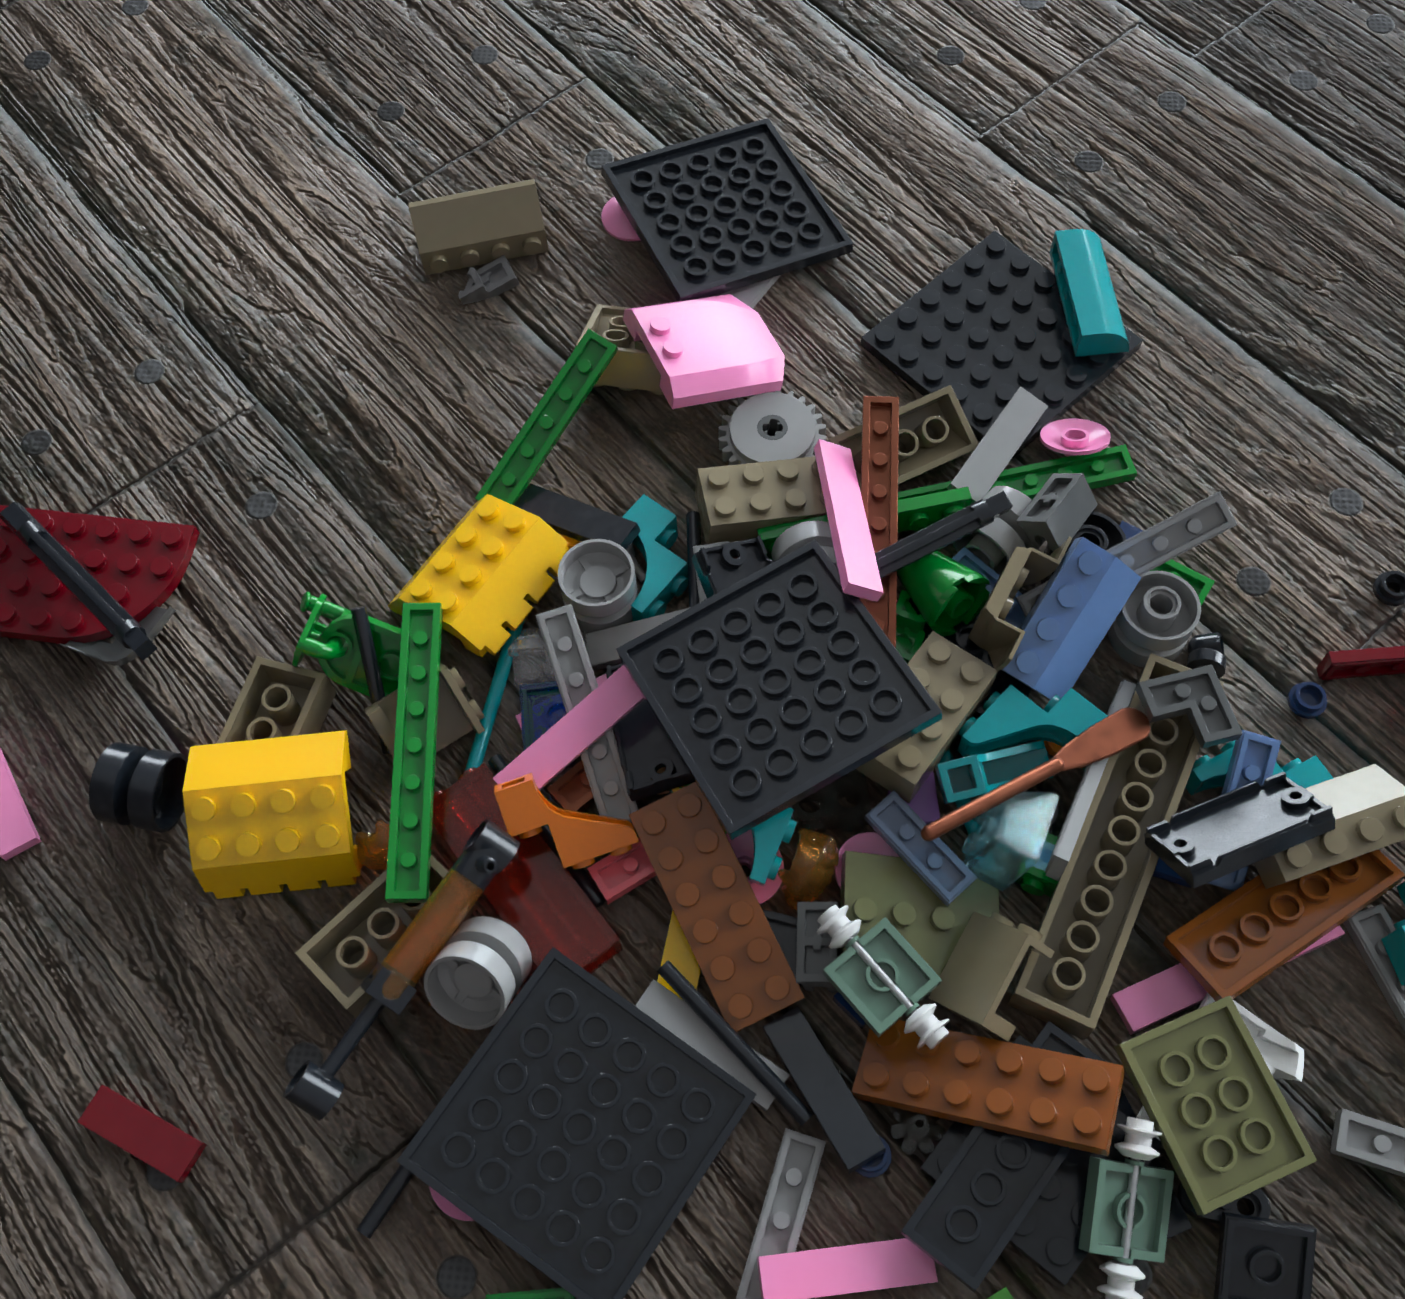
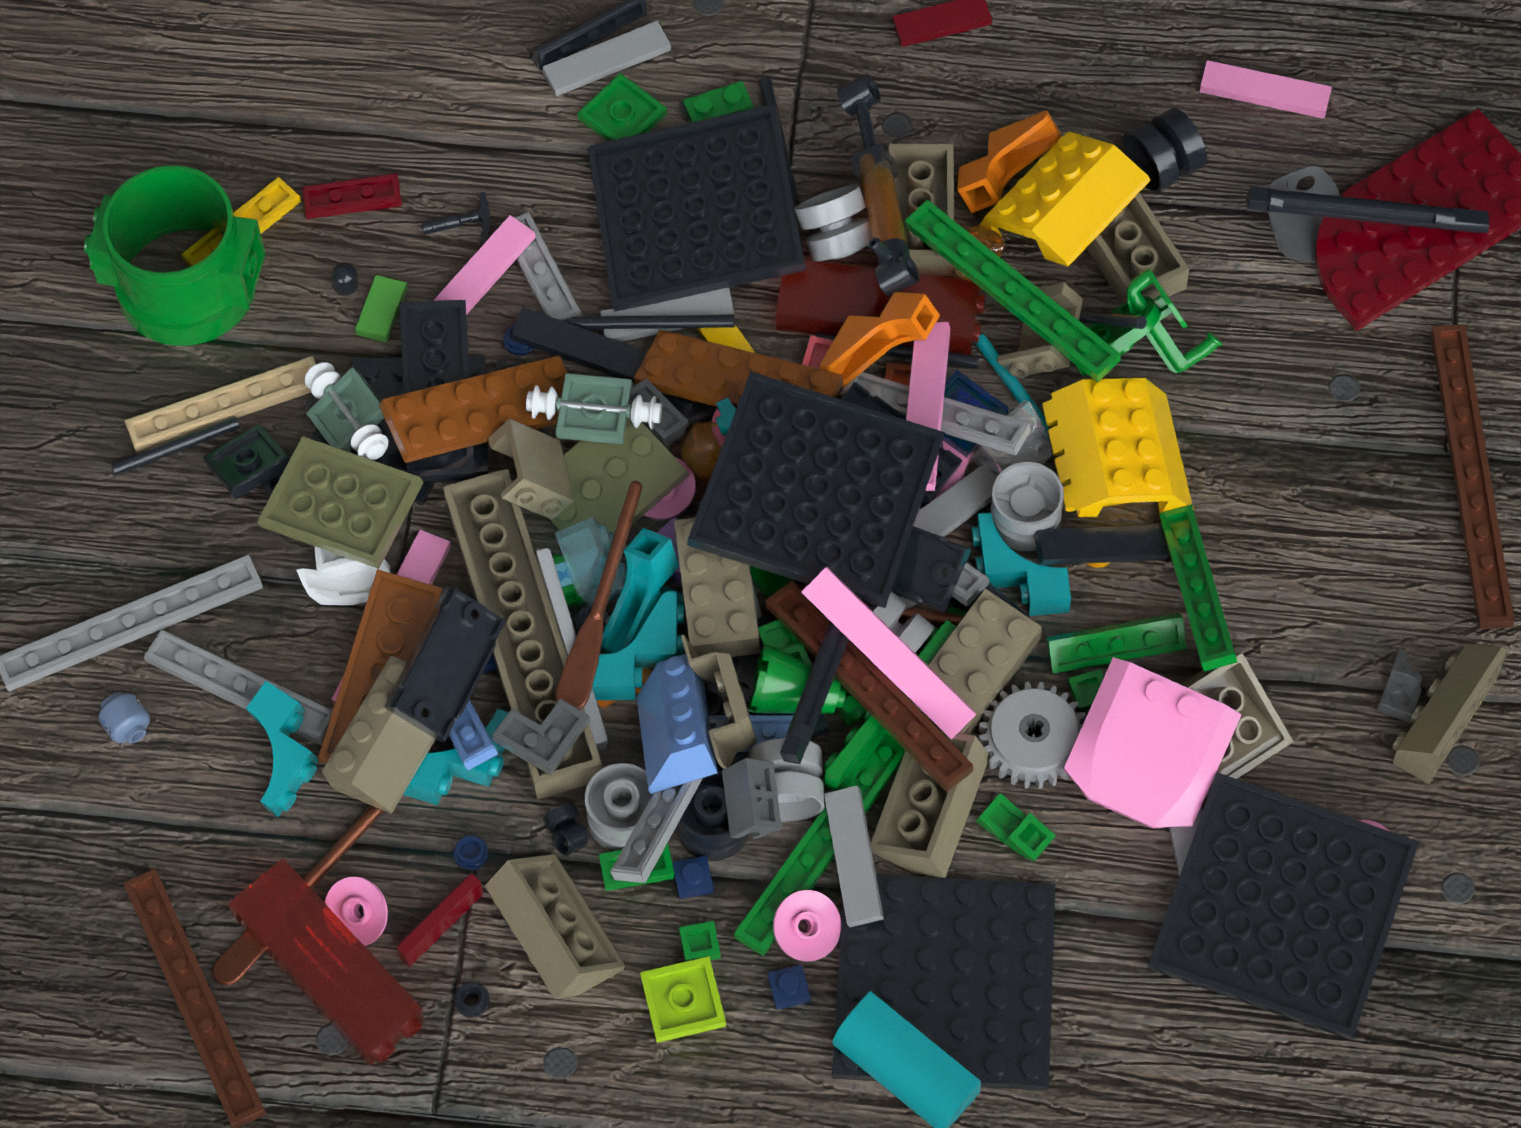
camera: 135 degrees right, 0 degrees up
(249, 911) = (1008, 153): none -> orange arch
(260, 370) = (1472, 477): none -> copper plate
(435, 1248) = (718, 102): none -> green plate
(632, 447) = (1119, 641): none -> green plate
(697, 437) = (1084, 688): none -> green plate
(847, 393) = (1015, 829): none -> green slope
(928, 859) = (652, 512): sand blue tile -> none
(1122, 418) = (788, 987): none -> dark blue plate
(1167, 491) = (700, 941): none -> green plate
(1215, 463) = (683, 999): none -> lime plate
(1280, 586) = (554, 925): none -> dark tan slope

